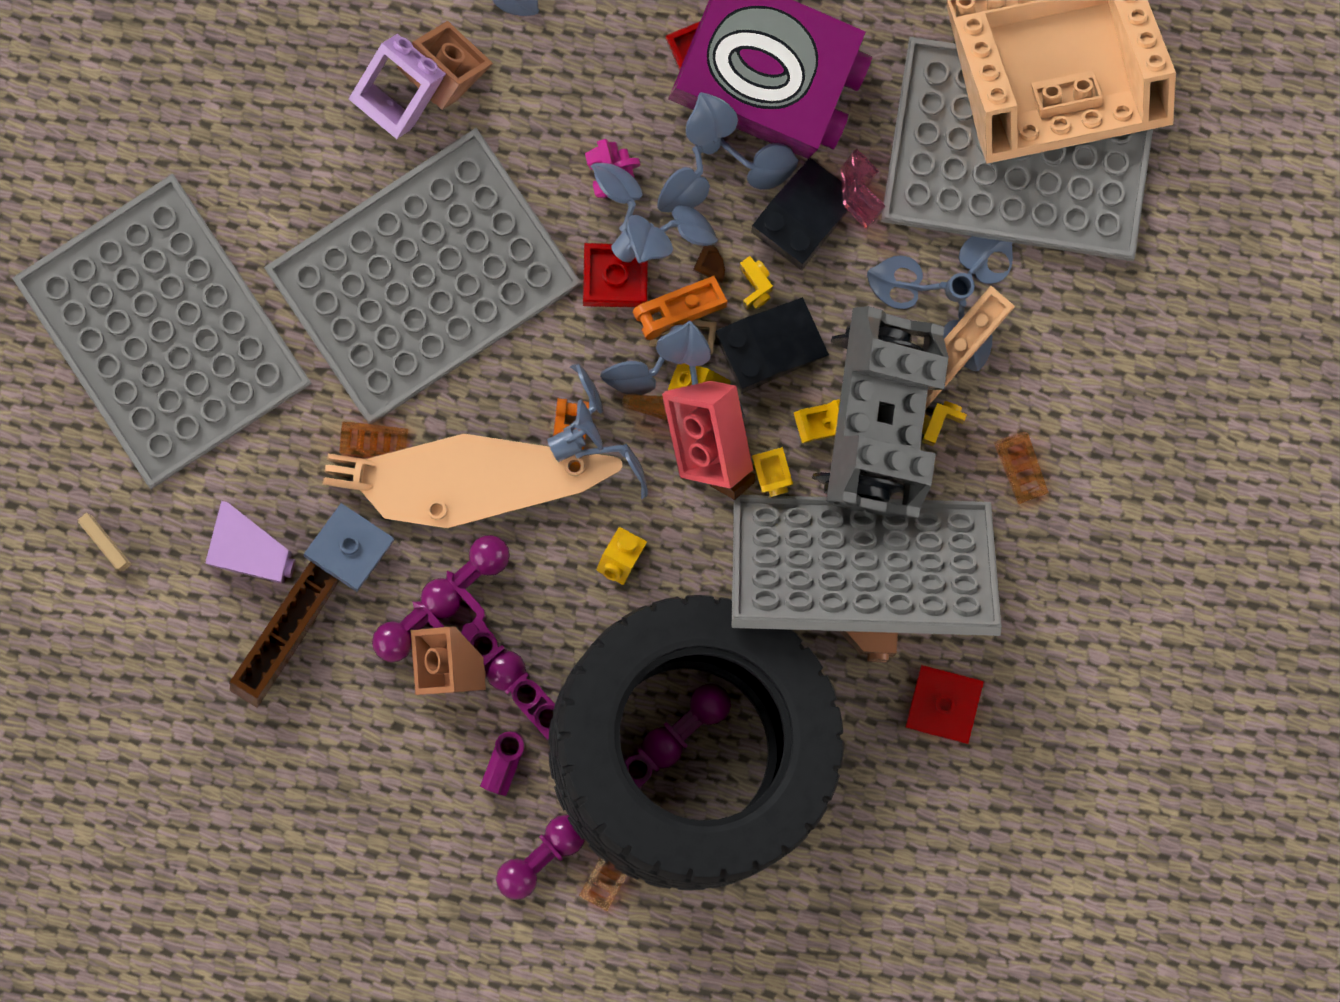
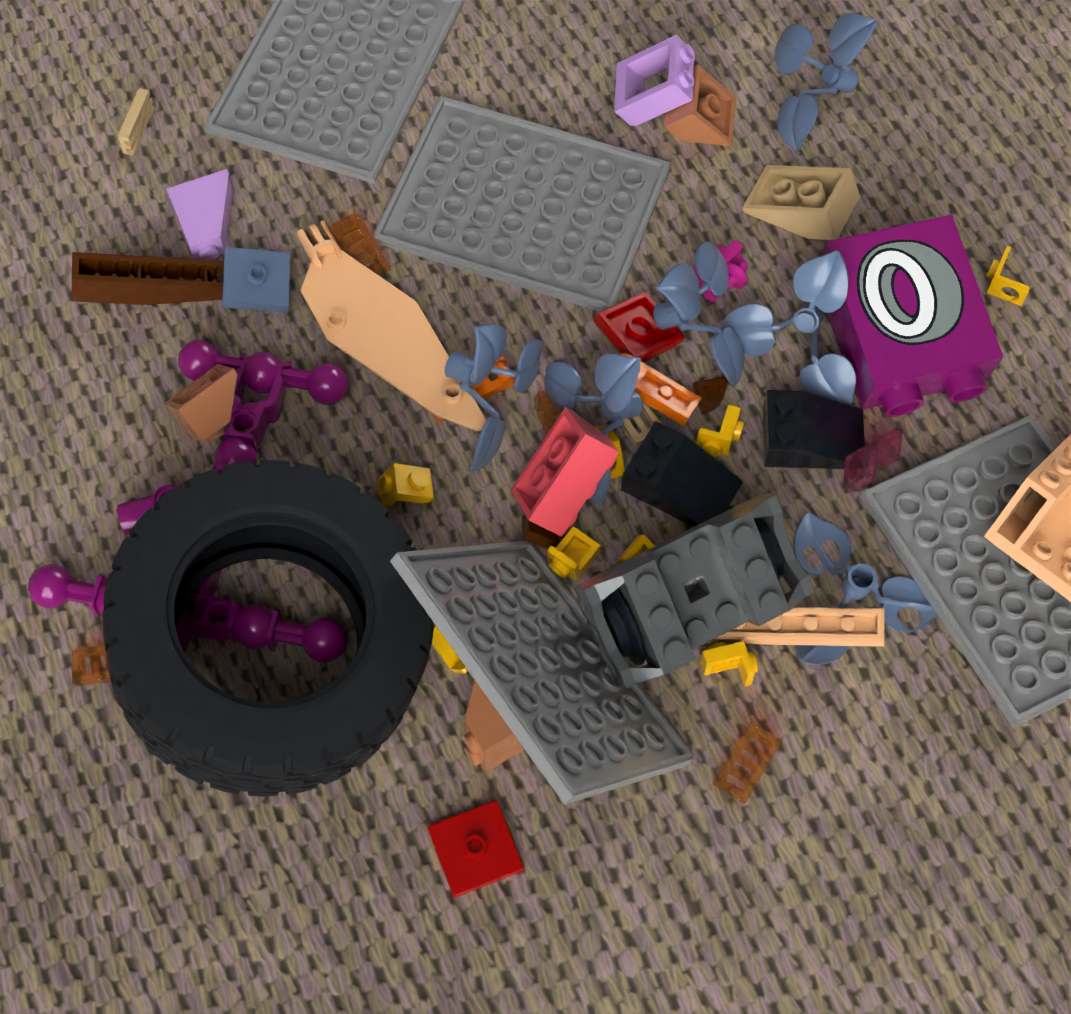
camera: 50 degrees right, 20 degrees down
(593, 52) = (804, 199): none -> tan slope

